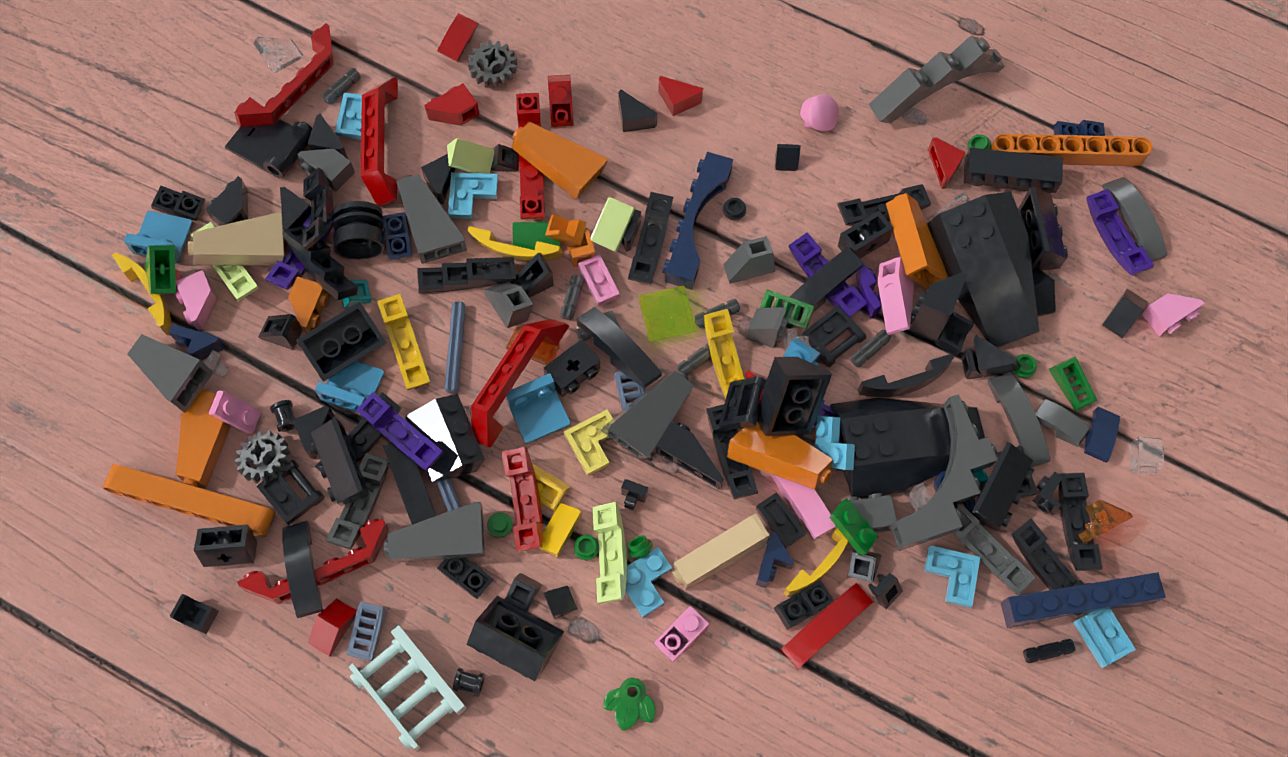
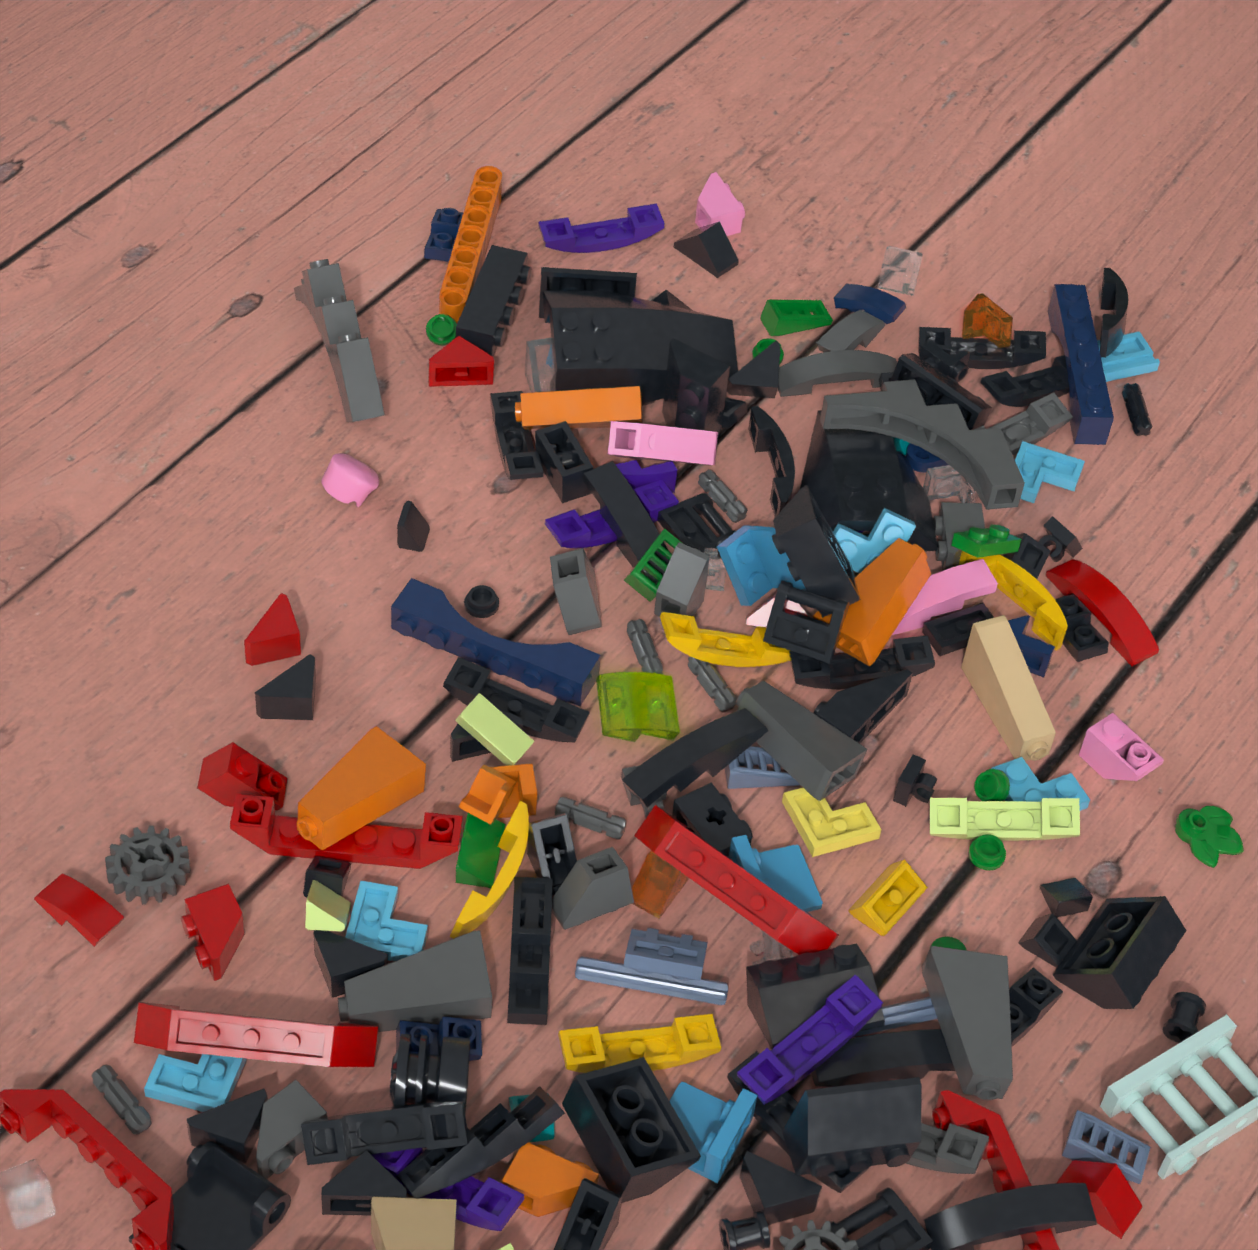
camera: 85 degrees left, 20 degrees down
(462, 349) = (665, 954): none -> sand blue plate
(525, 497) = (917, 913): red slope -> none
(560, 529) = (960, 880): yellow slope -> none
(599, 280) = (571, 777): bright pink plate -> none
(970, 364) = (764, 398): black slope -> none
(1117, 621) = (1115, 298): none -> black slope
(1138, 217) = (575, 206): dark grey slope -> none

